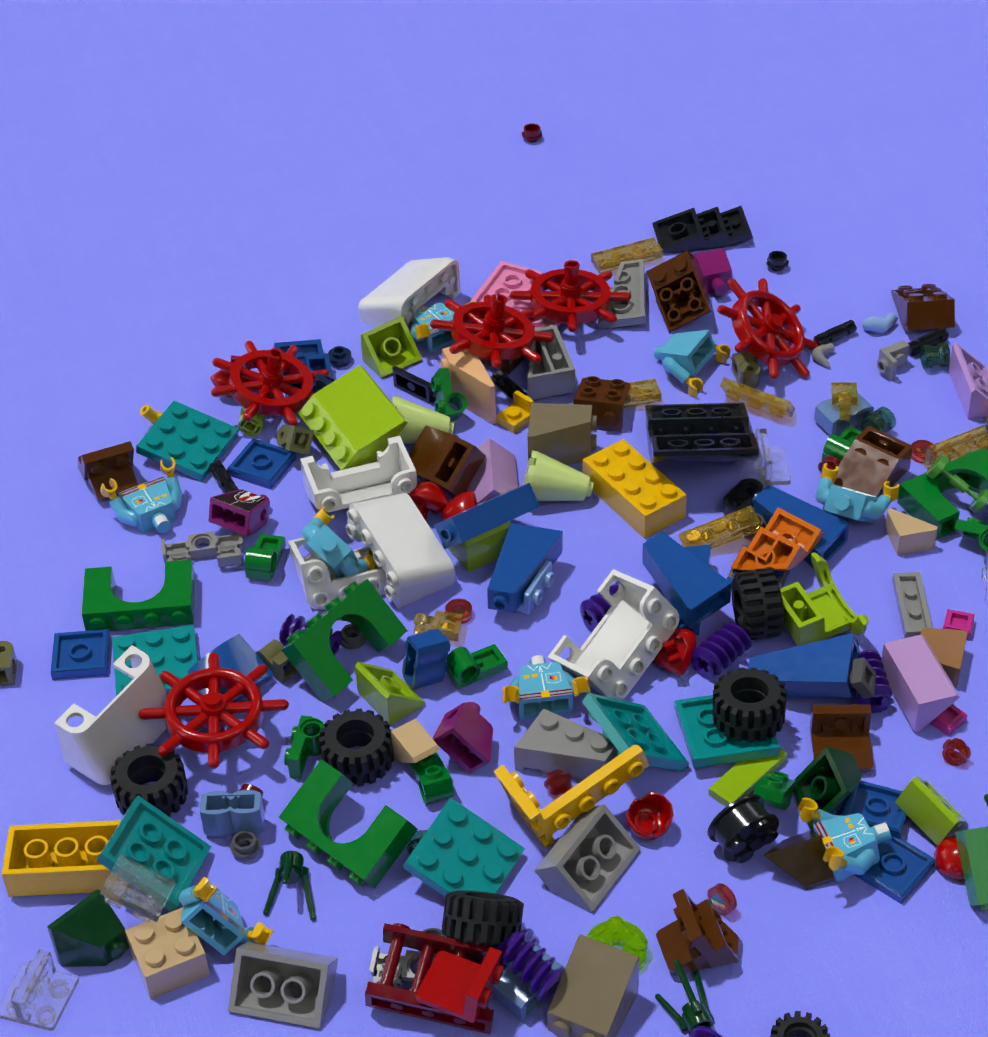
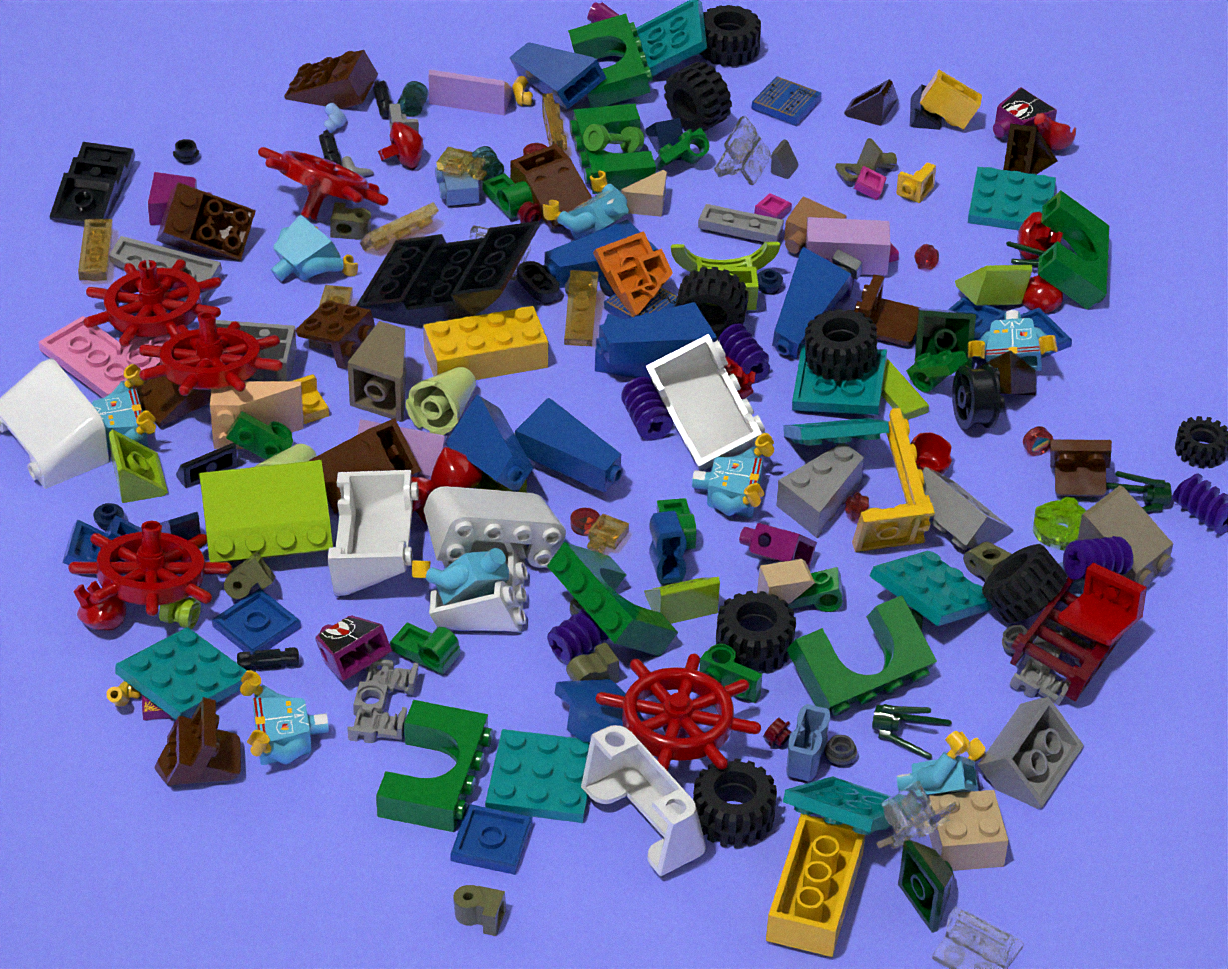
camera: 75 degrees left, 0 degrees up
(530, 892) = (984, 559): none -> olive leg
(863, 366) = (406, 145): none -> red piece

